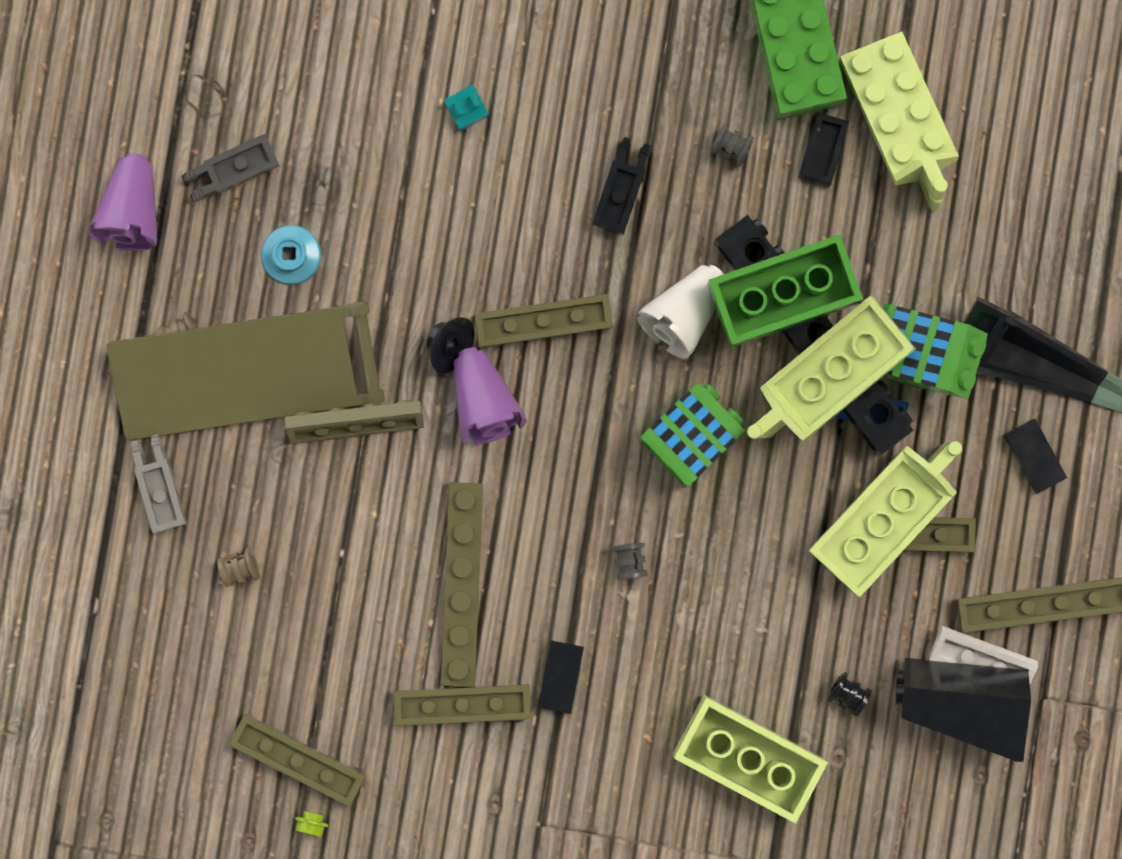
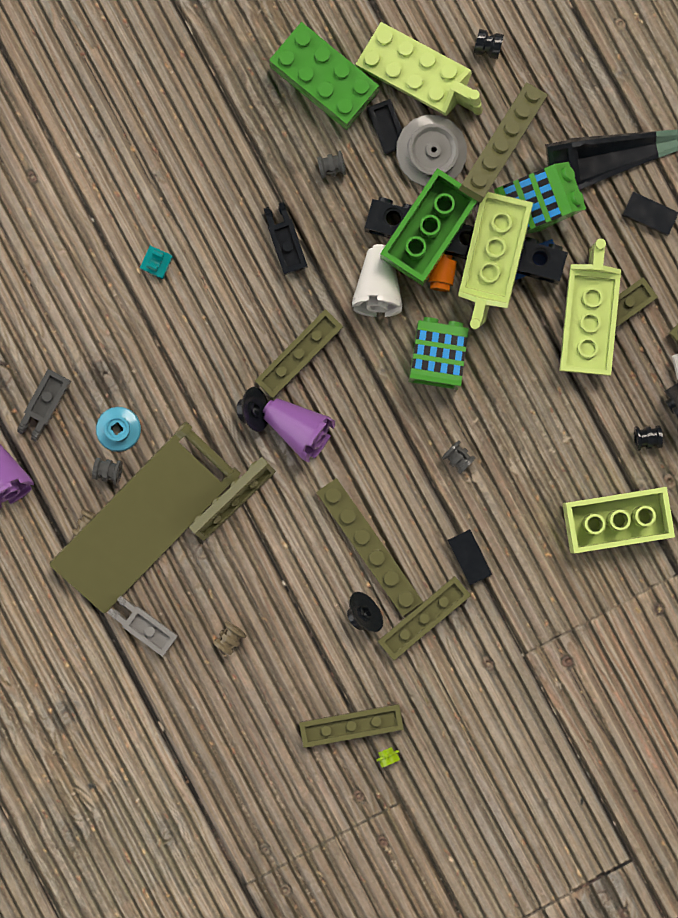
camera: 40 degrees left, 0 degrees up
(245, 290) = (107, 470): none -> dark grey bush
(402, 650) = (364, 613): none -> black piece
(762, 352) = (443, 274): none -> orange brick
(848, 187) = (415, 147): none -> light grey piece
(933, 260) = (503, 142): none -> olive plate
(999, 142) = (489, 44): none -> black wheel

